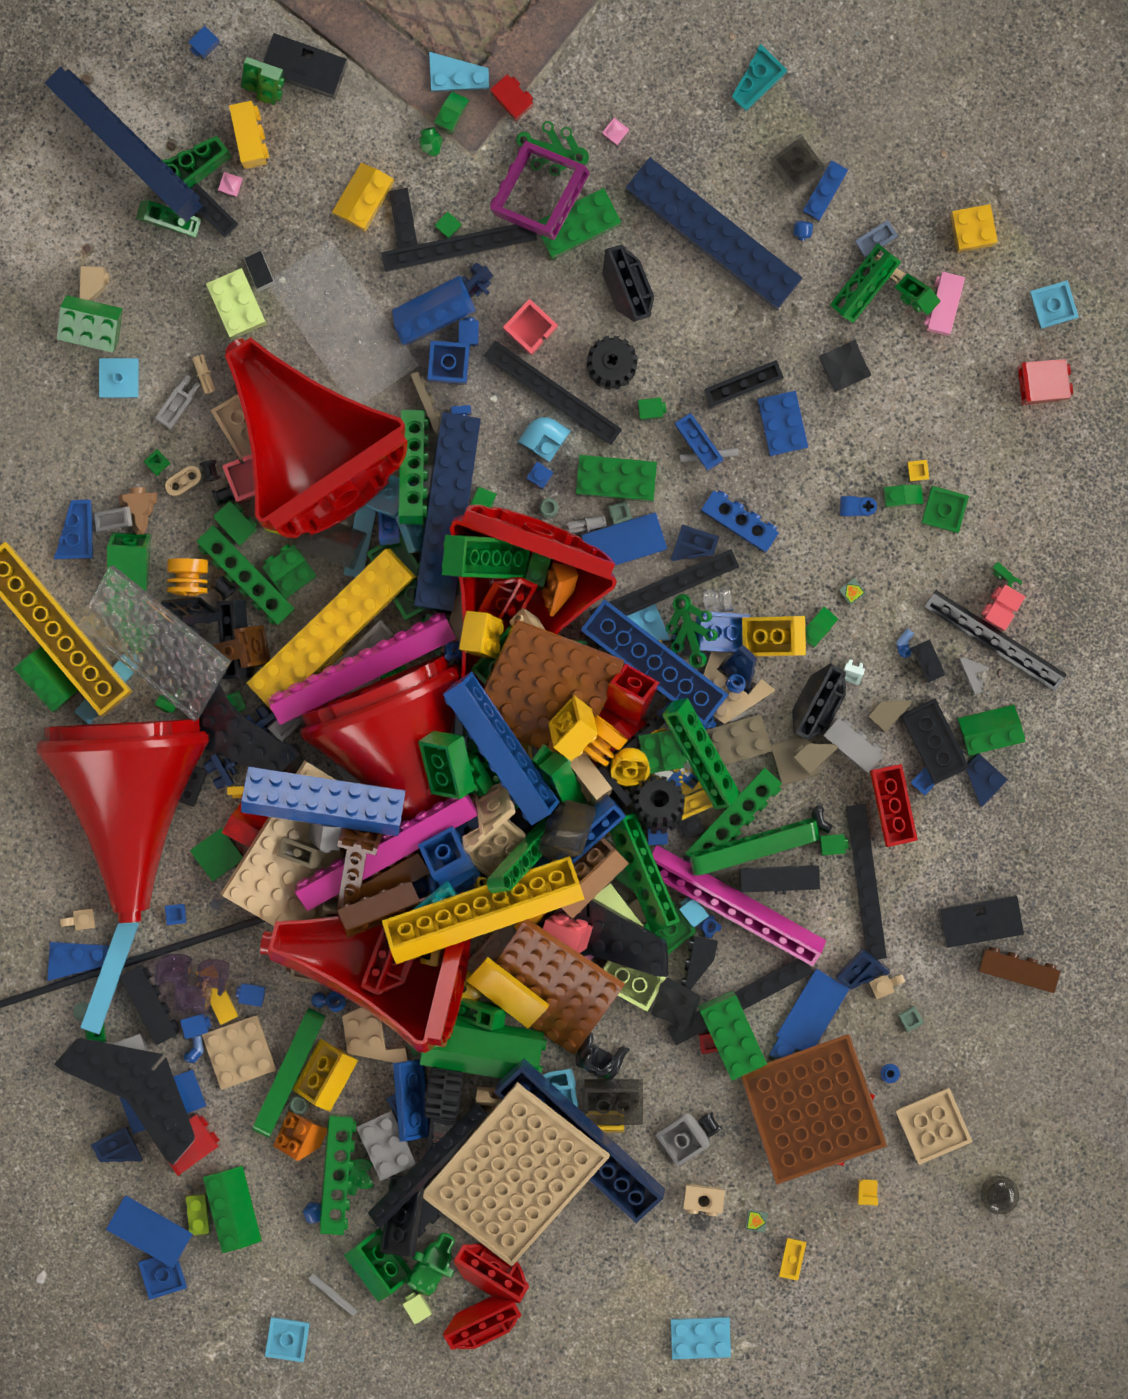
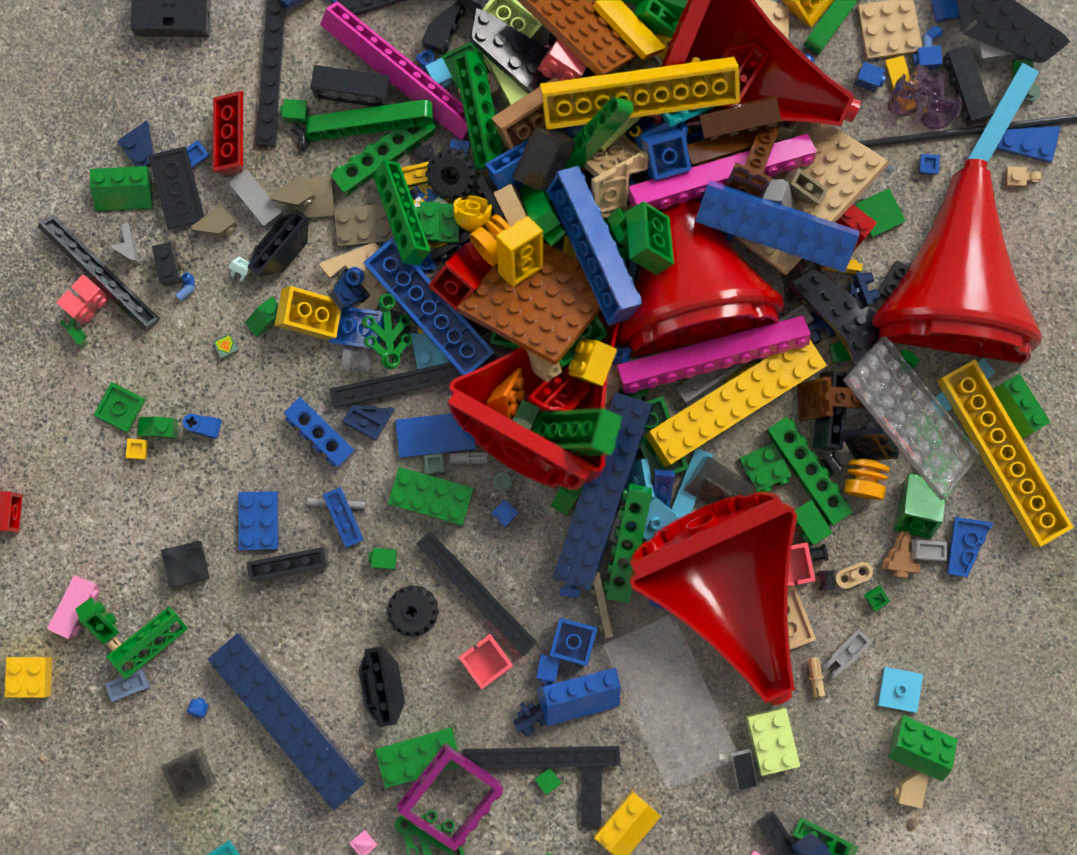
camera: 175 degrees left, 5 degrees down
(544, 437) = (493, 551): medium azure brick -> none
(825, 190) = (167, 743): blue plate -> none

